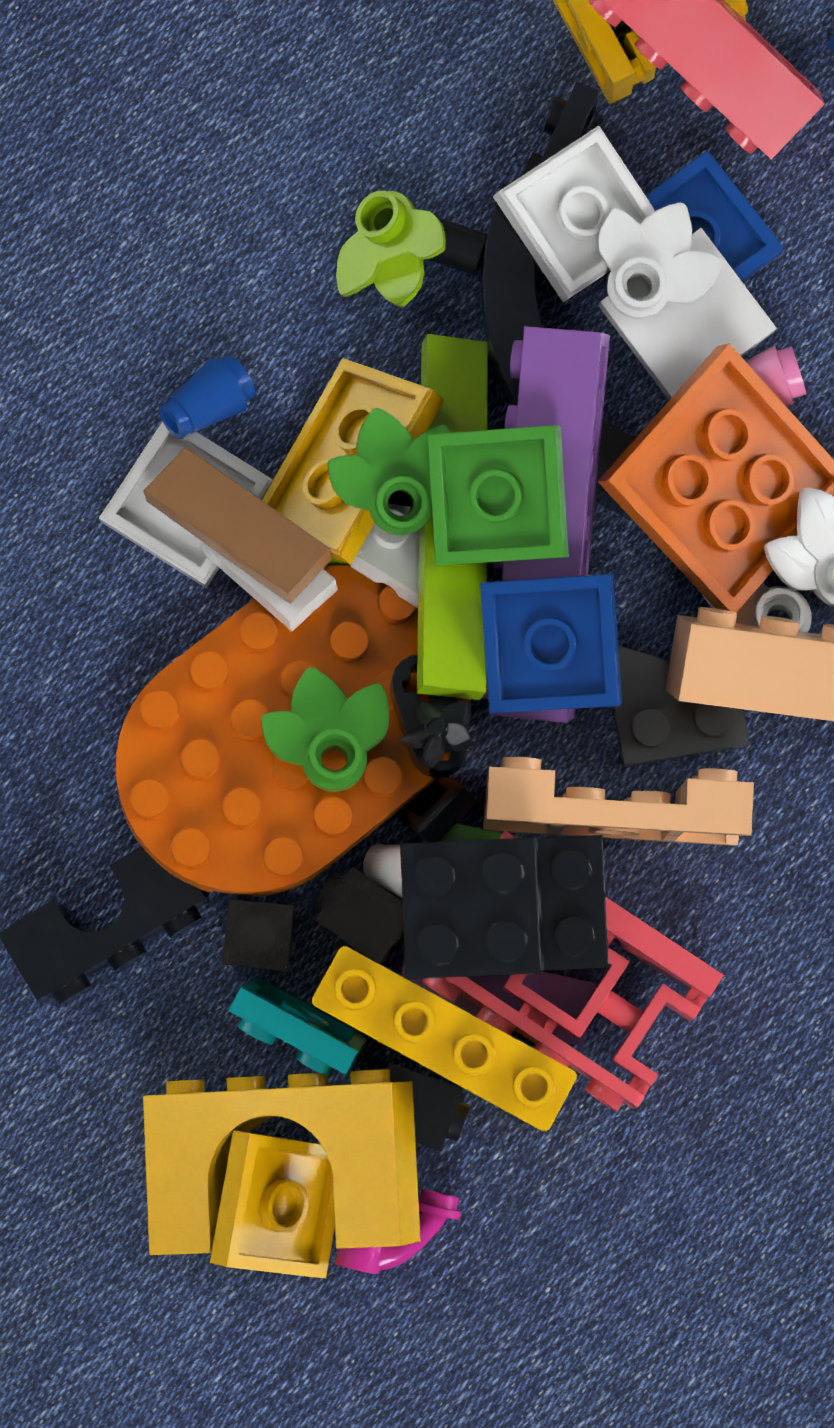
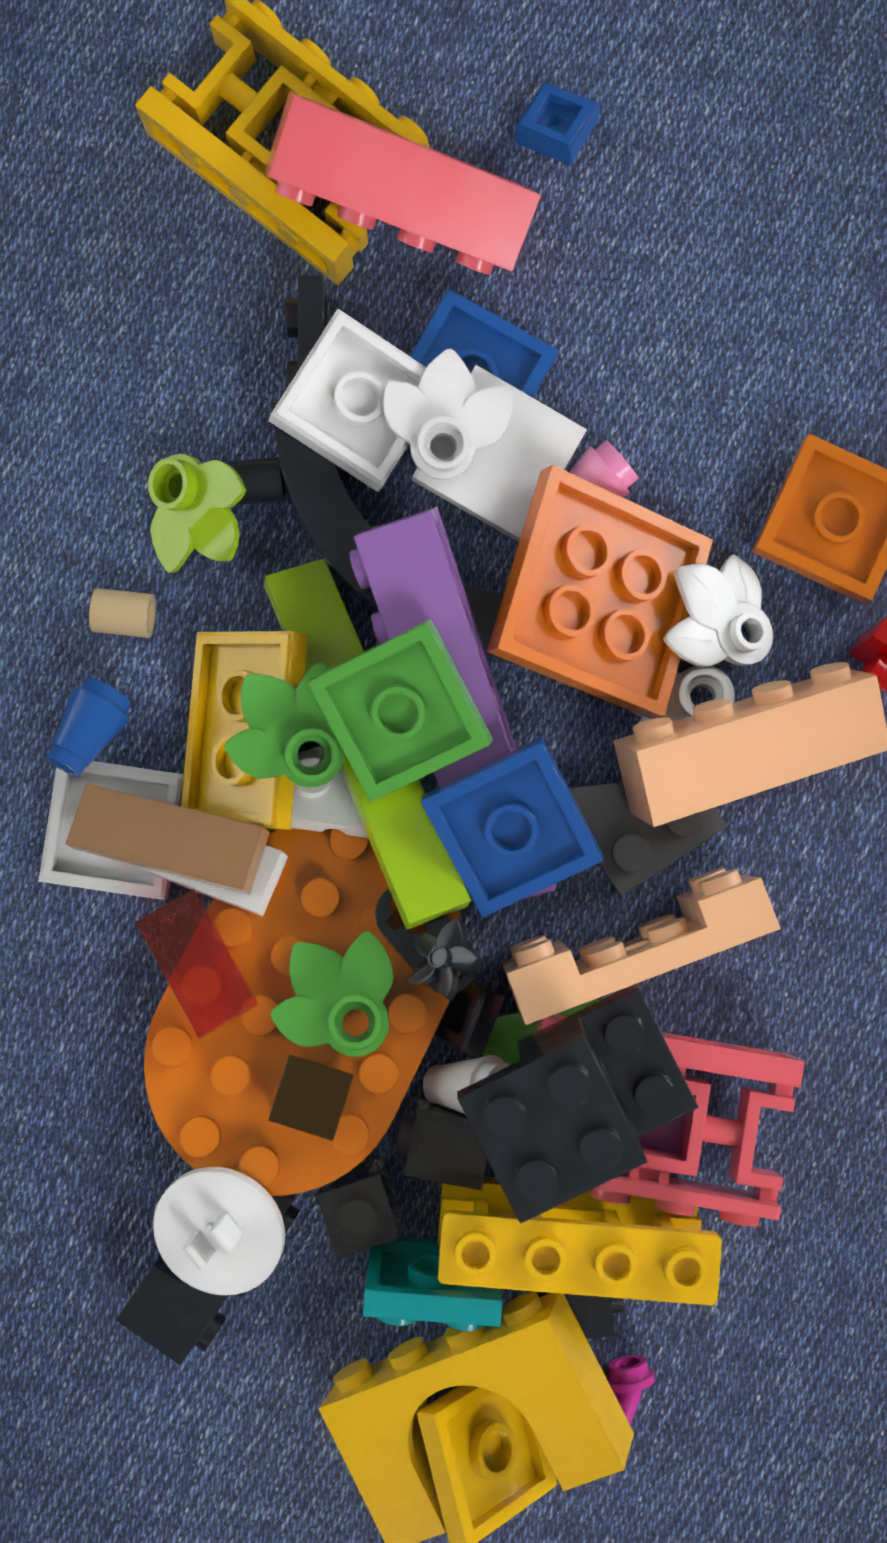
camera: 30 degrees left, 5 degrees up
(129, 889) = (219, 1230): none -> white piece
(215, 646) = (197, 963): none -> clear red tile
(265, 805) = (311, 1097): none -> dark brown tile
(283, 311) = (122, 612): none -> tan hinge

